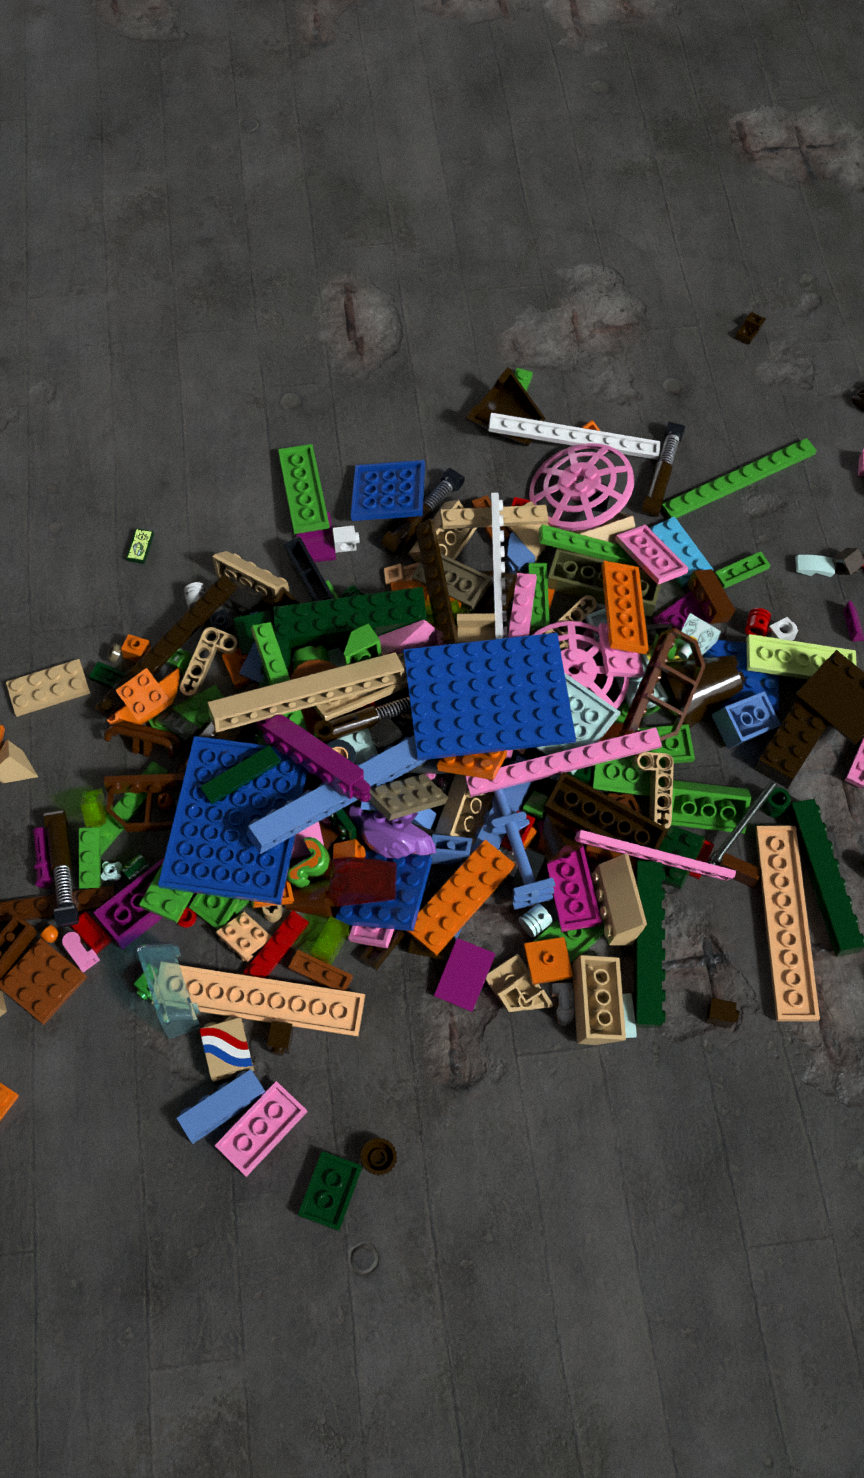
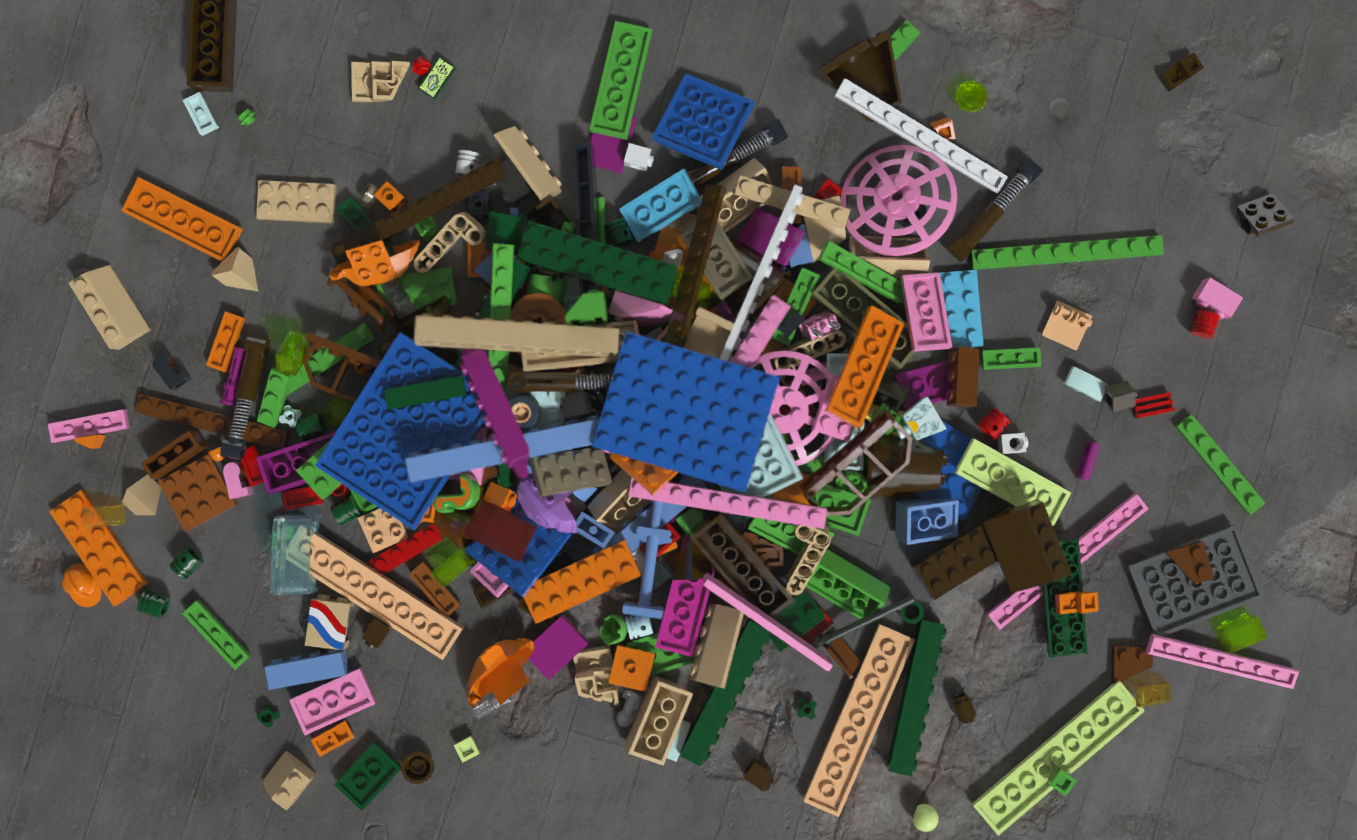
camera: 25 degrees right, 25 degrees up
(22, 829) = (225, 341): none -> orange plate
(33, 1107) = (153, 604): none -> dark green piece
(54, 1050) = (186, 562): none -> dark green piece
(86, 566) = (376, 80): none -> tan slope
(112, 1112) = (216, 634): none -> bright green plate
(122, 540) = (420, 65): none -> red plate
(156, 848) = (337, 411): none -> clear neon green hat
(157, 935) = (300, 498): none -> red tile
(194, 1170) = (262, 716): none -> dark green plate
(201, 932) = (345, 510): none -> dark green piece
(245, 1234) = (287, 780): none -> tan slope
(276, 1169) = (332, 738): none -> orange slope
(384, 562) = (661, 205): none -> medium azure plate
(419, 1017) = (499, 670): none -> orange animal
(421, 1116) = (467, 748): none -> yellowish green plate
(427, 1061) = (487, 707): none -> clear axle
(479, 552) = (760, 231): none -> magenta tile
(513, 933) = (613, 630): none -> bright green hair
(543, 606) = (791, 324): none -> black piece
(567, 601) = (819, 325): none -> bright pink piece
(598, 399) = (971, 96): none -> clear neon green hat
(659, 717) = (856, 478): none -> bright green hat
(729, 937) = (806, 703): none -> dark green plate
(772, 529) = (1067, 325): none -> light nougat hinge

